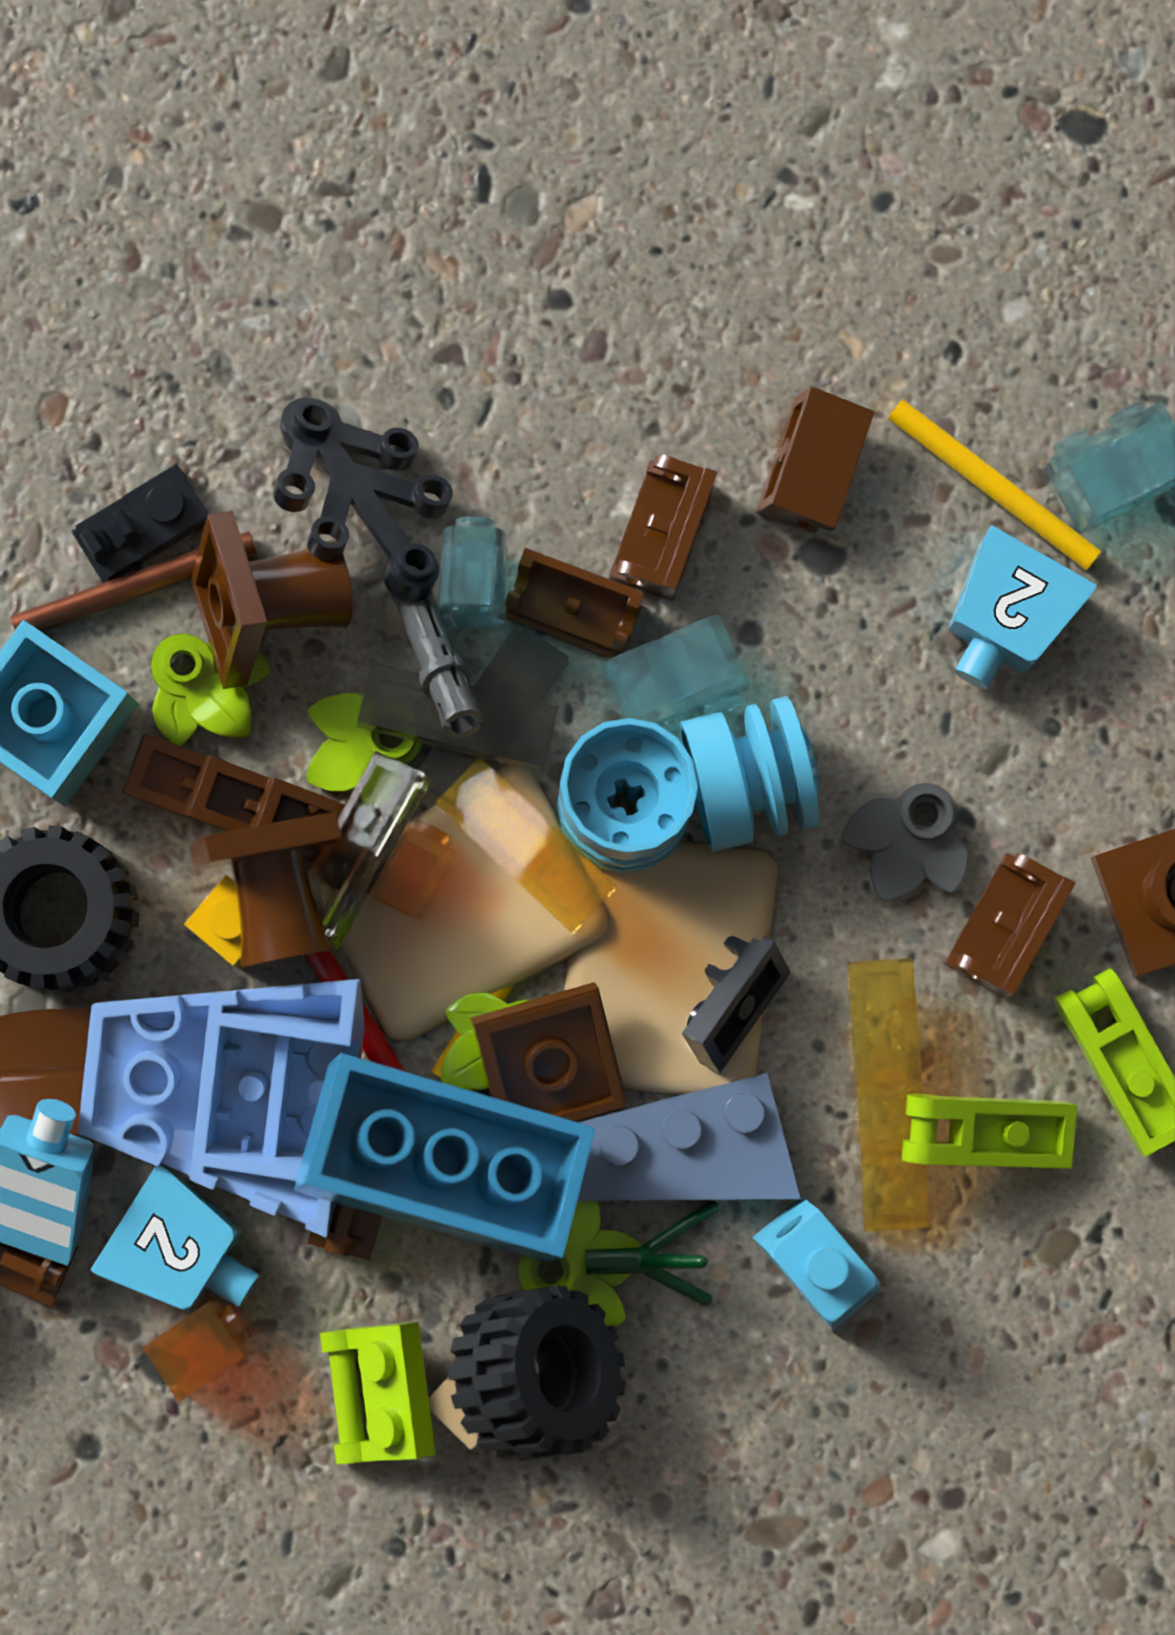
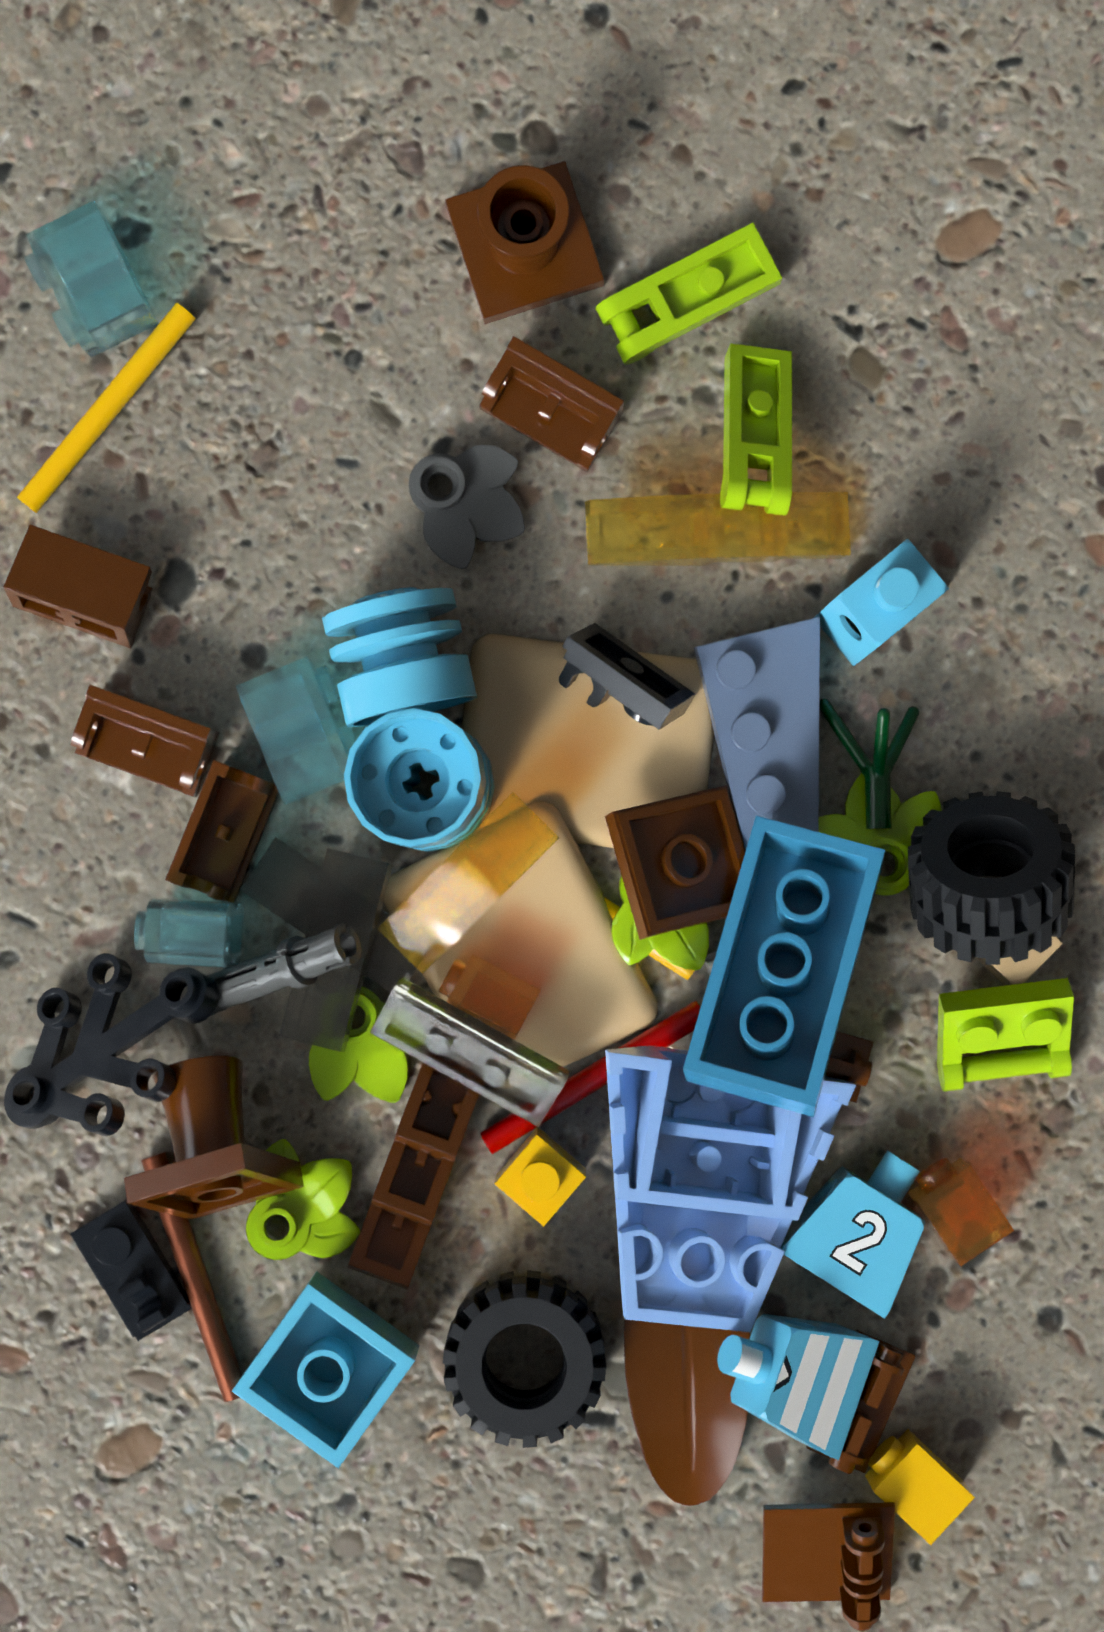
camera: 80 degrees left, 5 degrees up
(272, 884) = (510, 1136): reddish brown plant -> none
(1012, 607) = (232, 392): medium azure torso -> none

